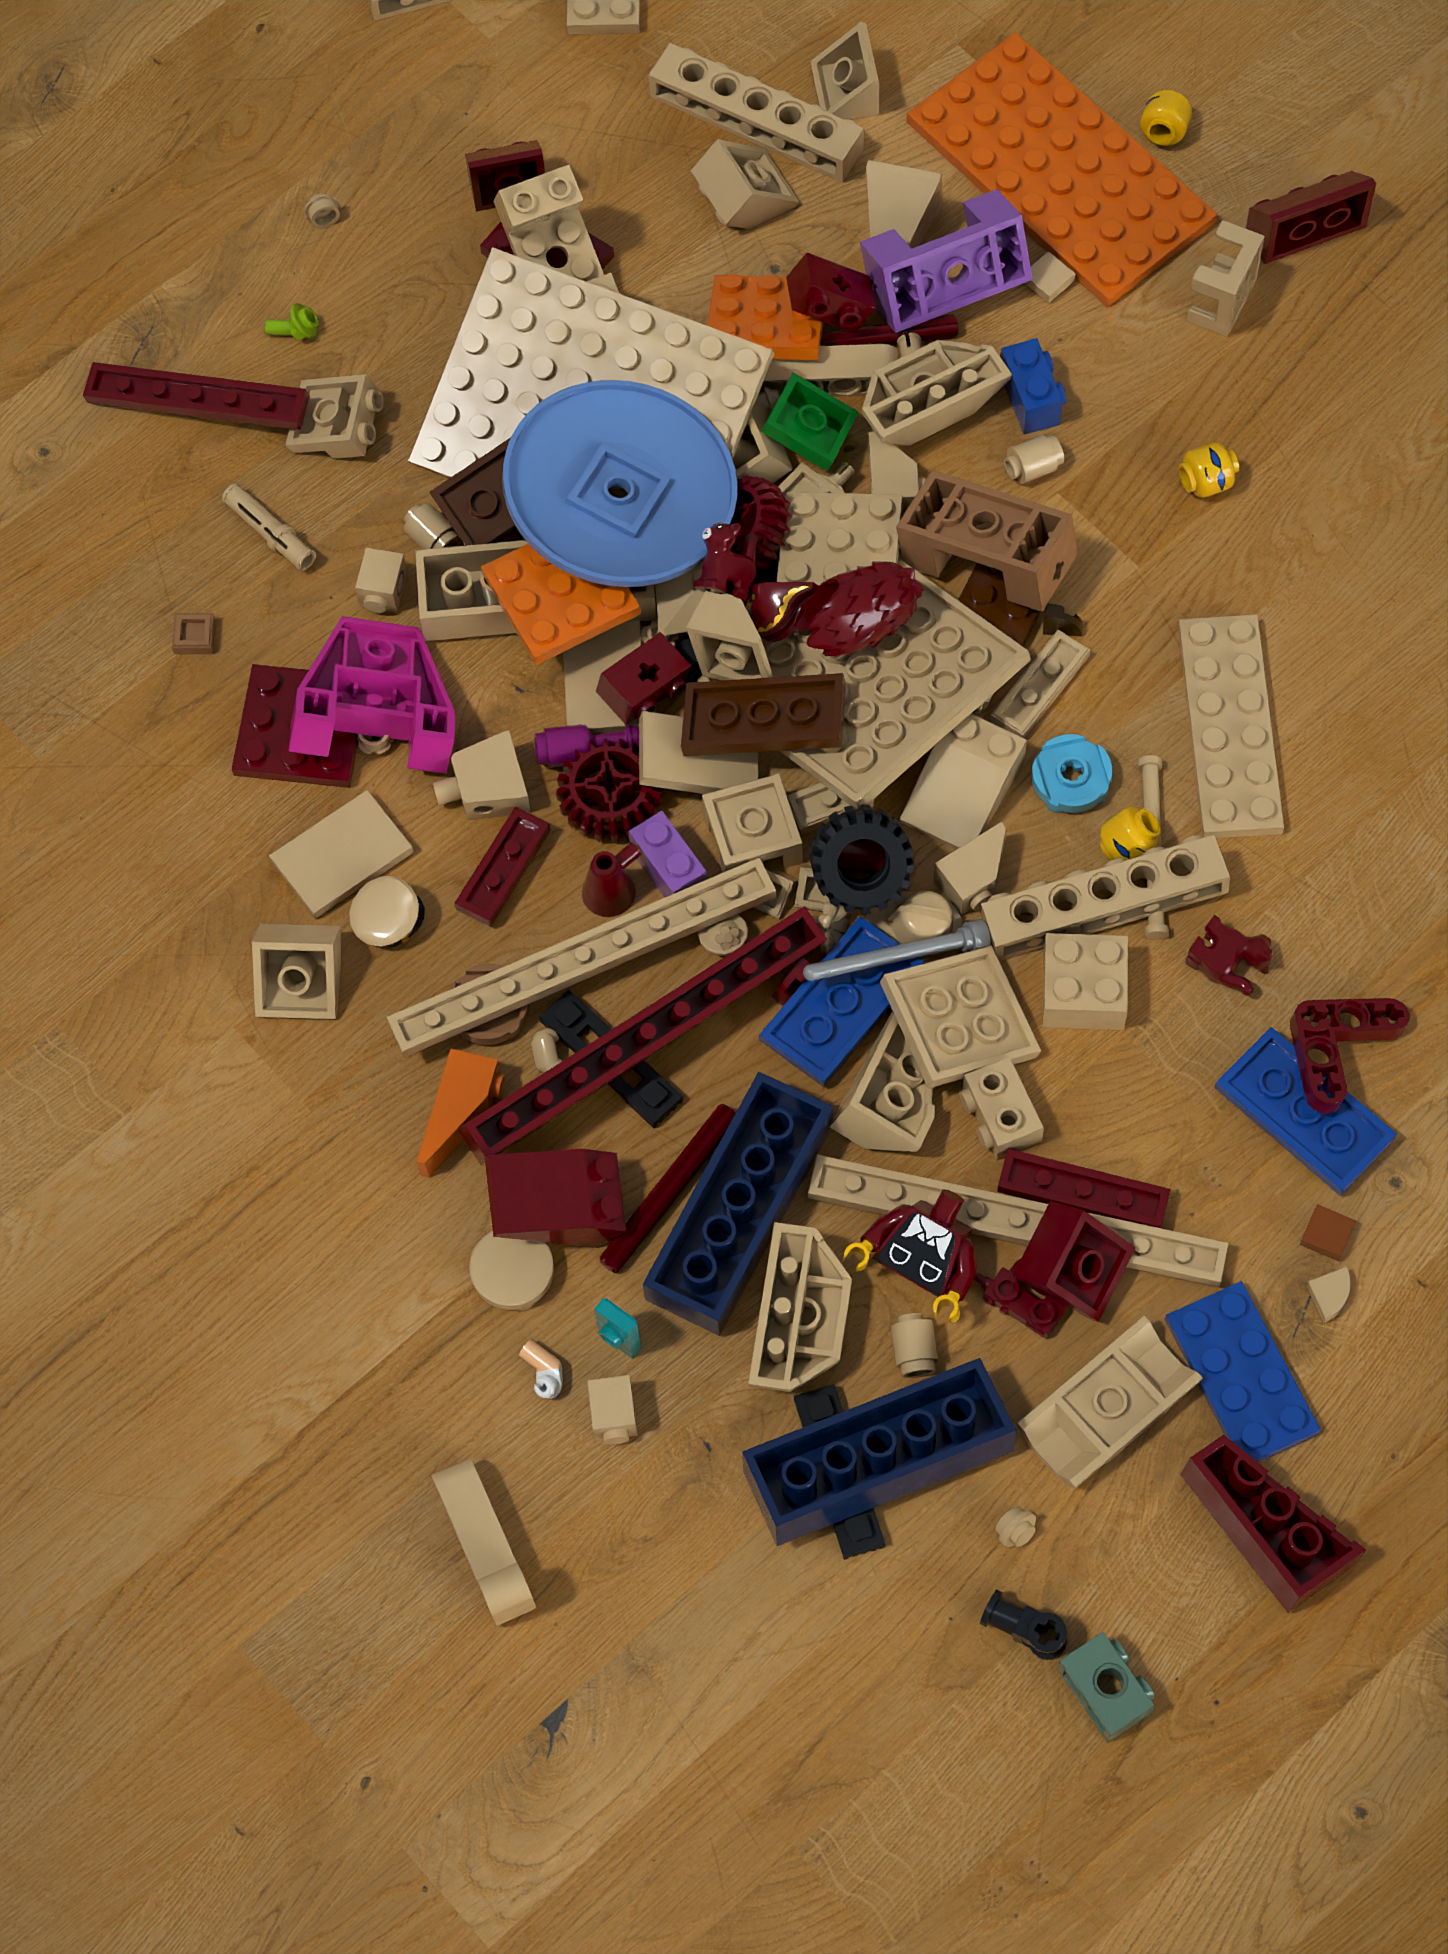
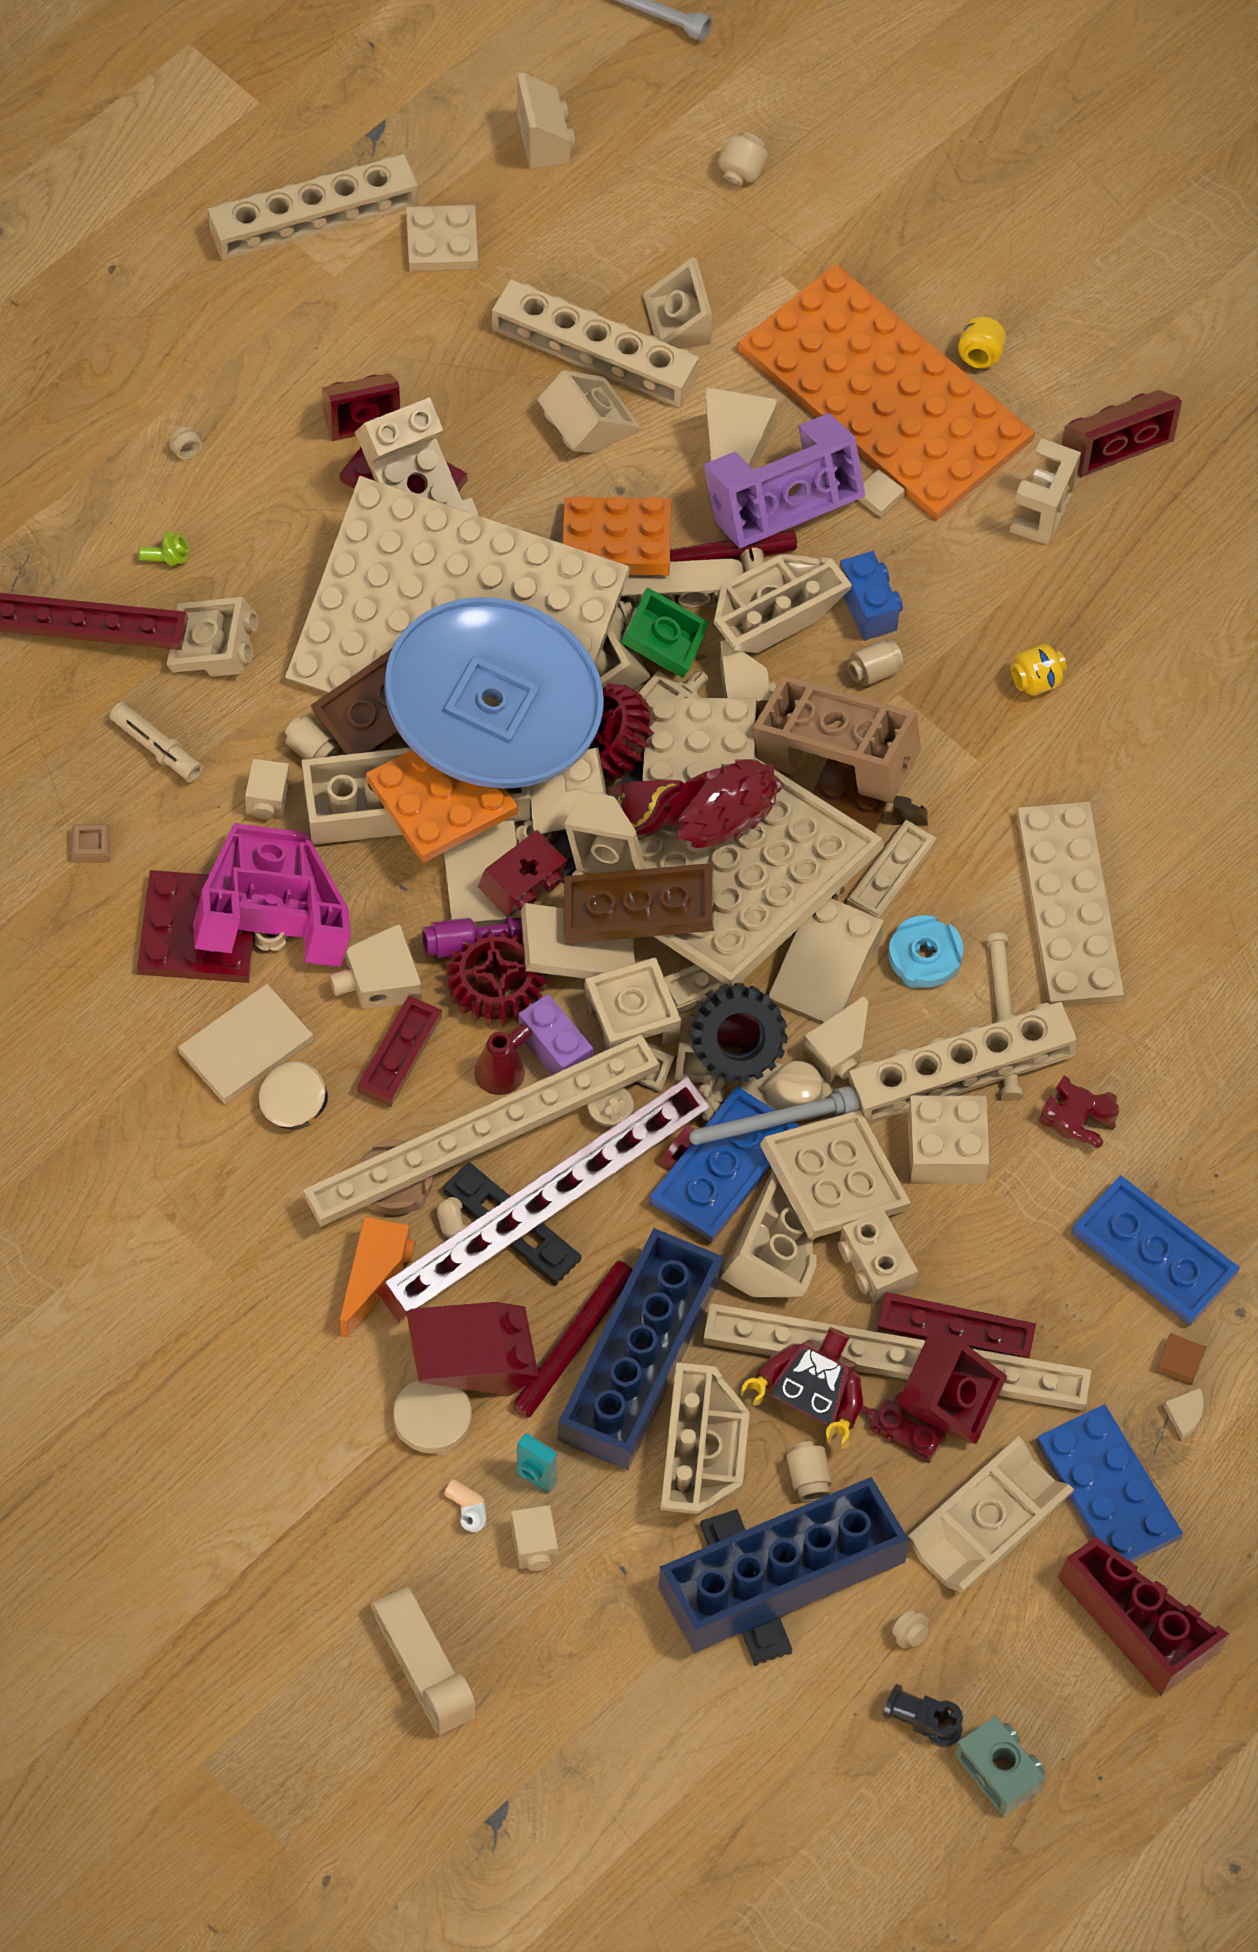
camera: 10 degrees left, 5 degrees down
(296, 971) = (212, 1152): tan slope -> none
(721, 567) = (593, 768): dark red animal -> none
(830, 292) = (678, 512): dark red brick -> none
(1129, 833) = (982, 1003): yellow head -> none
(1332, 1030) = (1175, 1177): dark red beam -> none

